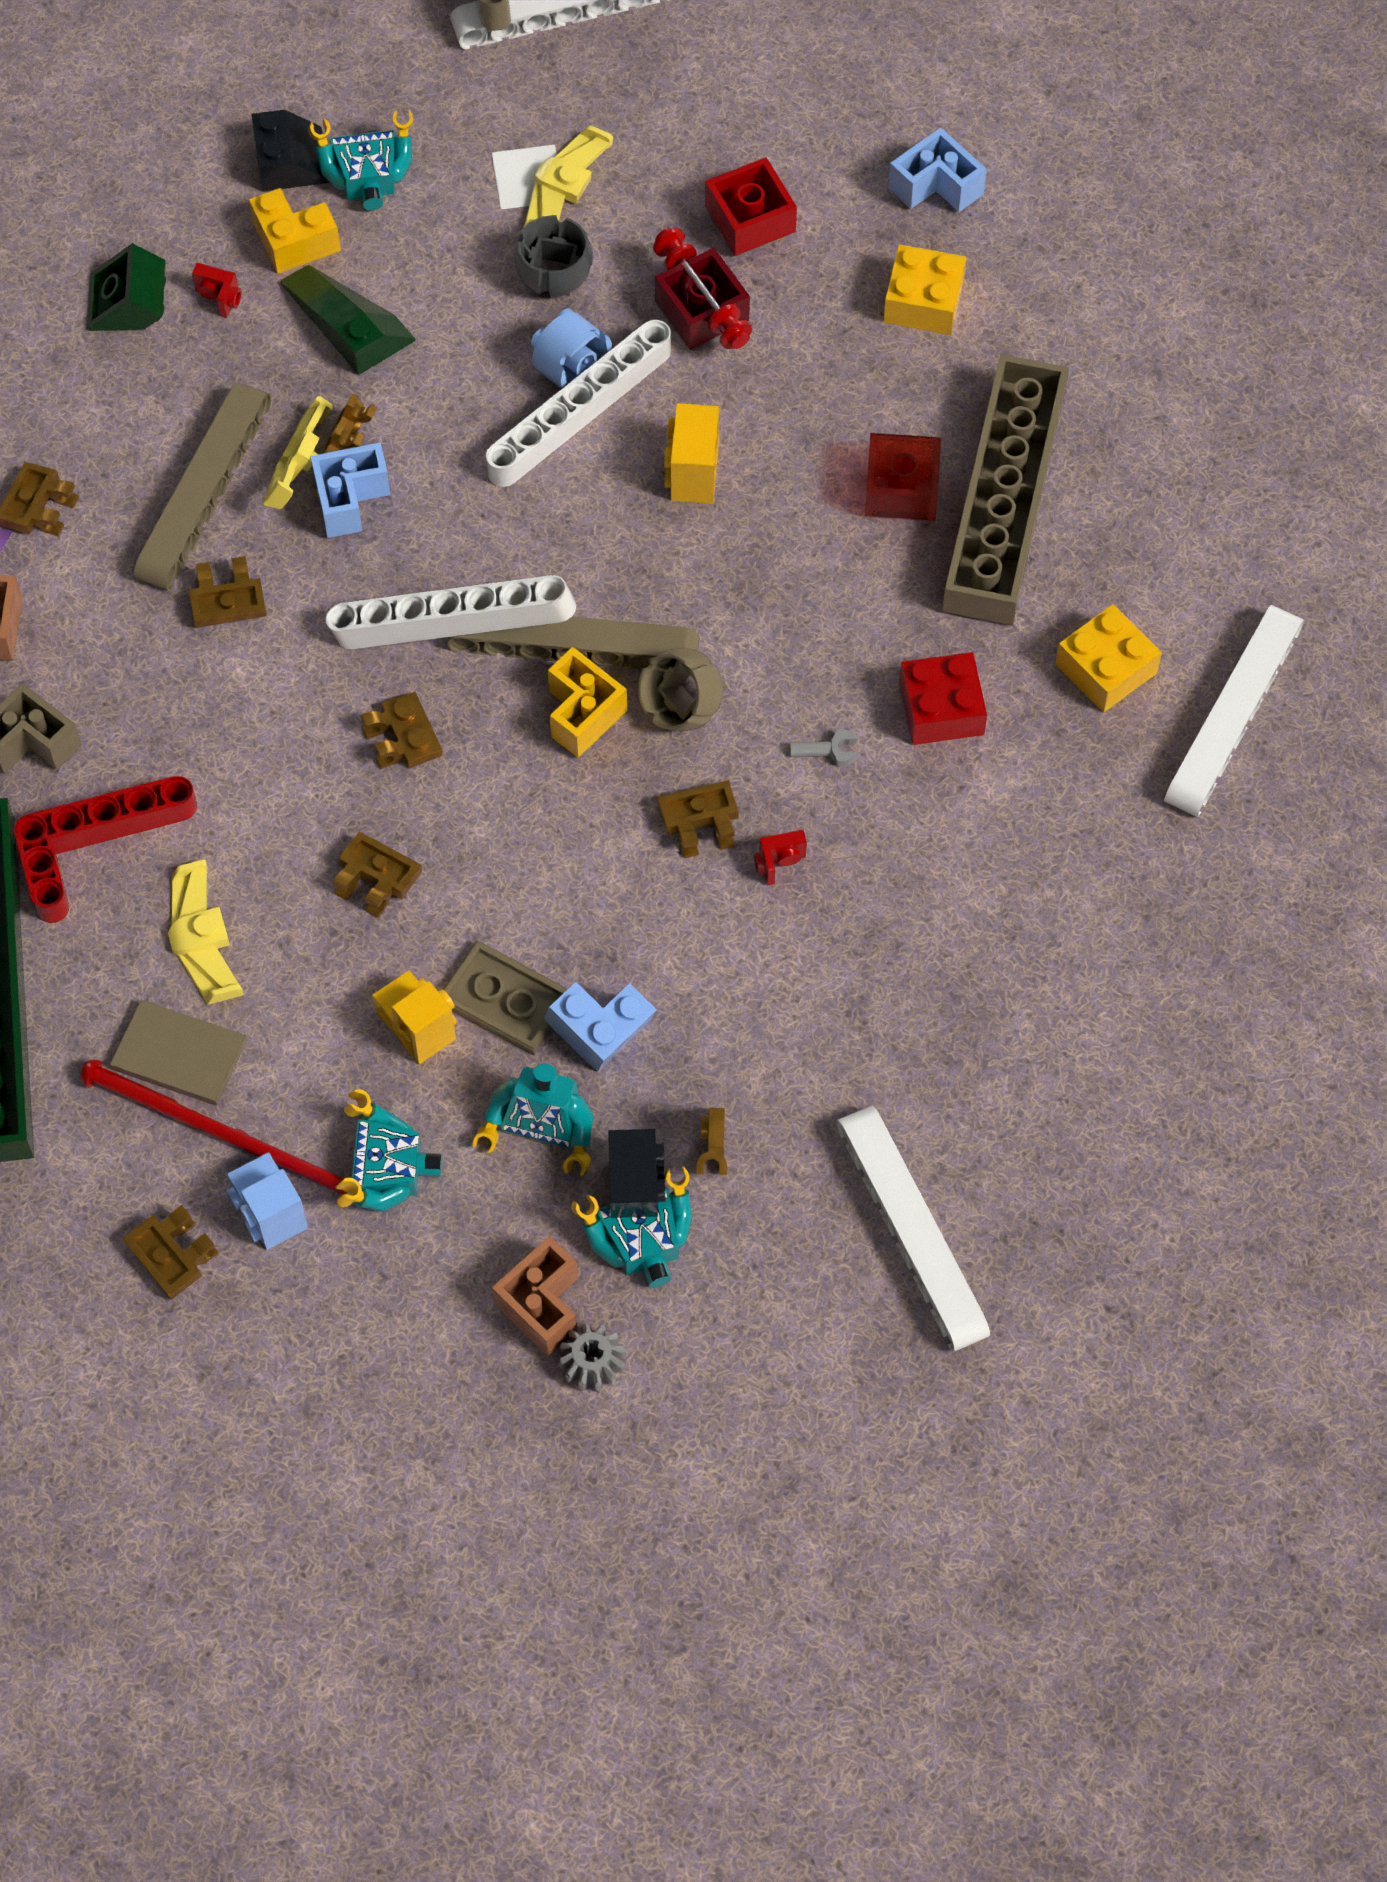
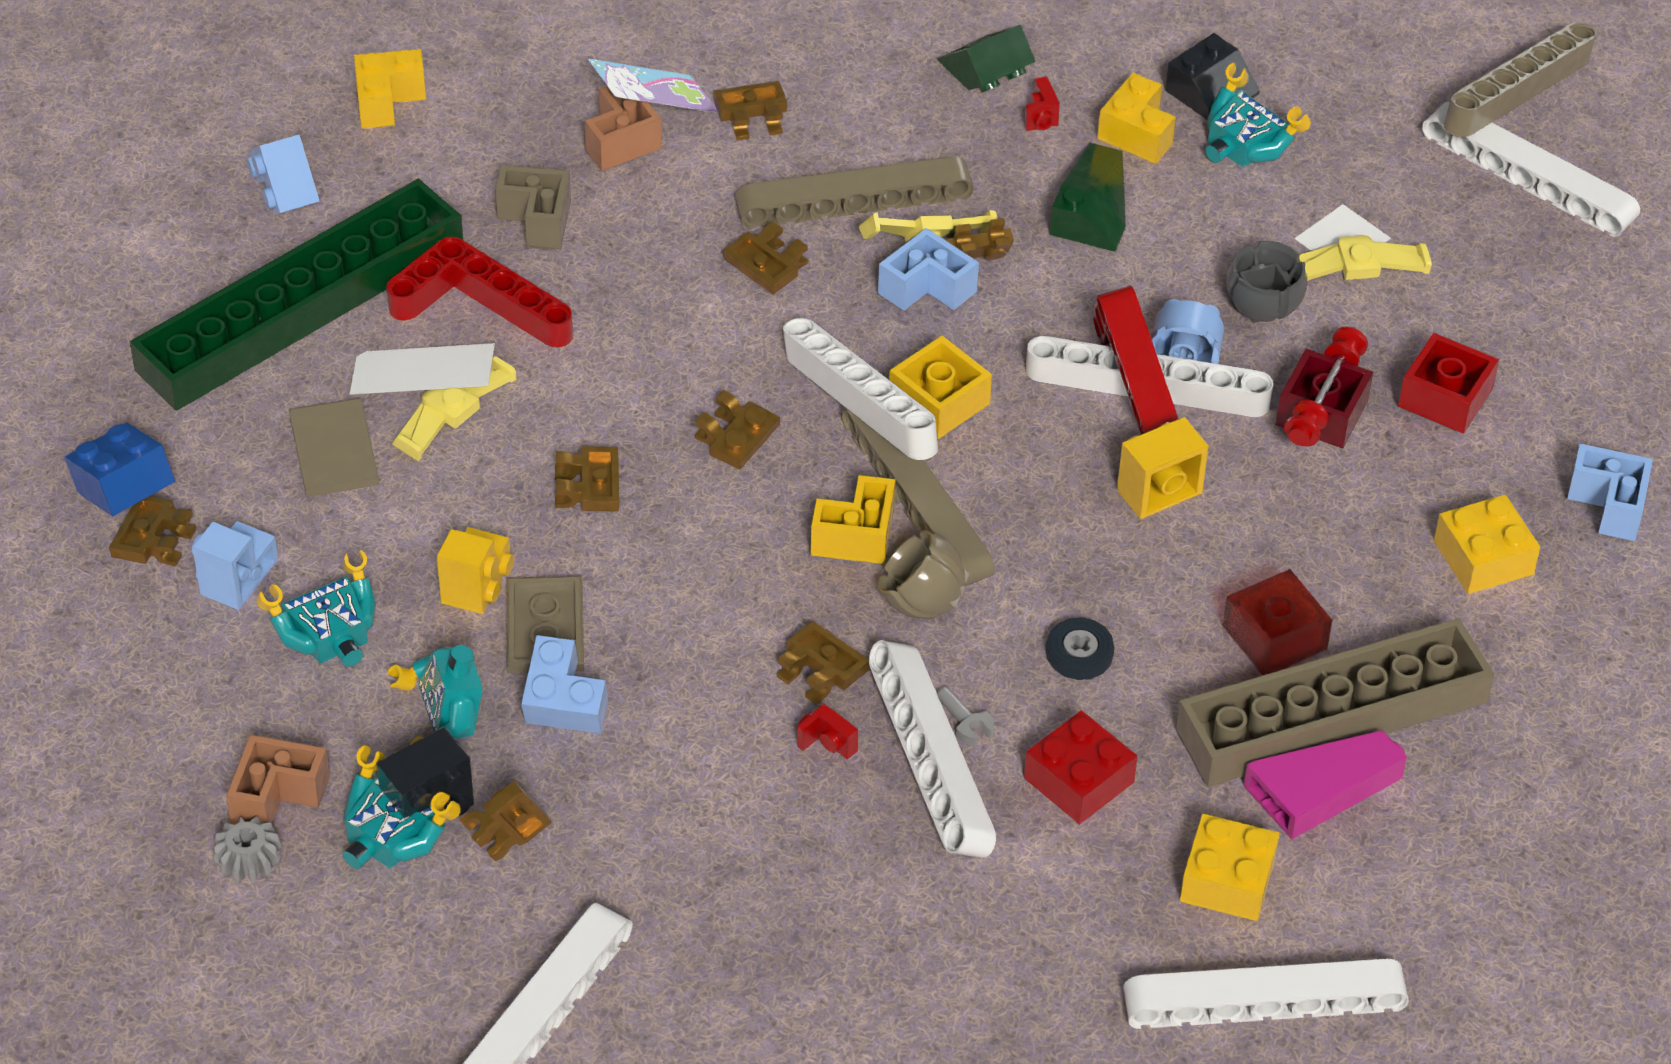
camera: 55 degrees right, 15 degrees down
(88, 1238) = (119, 468): none -> blue brick
(93, 1072) = (275, 407): red bar -> none
(144, 932) = (422, 369): none -> white sticker
(481, 548) = (944, 383): none -> yellow brick
(580, 398) = (1123, 326): none -> red beam
(803, 634) = (1080, 663): none -> black bush
(866, 783) = (932, 749): none -> white beam
(1069, 548) = (1323, 780): none -> dark pink slope

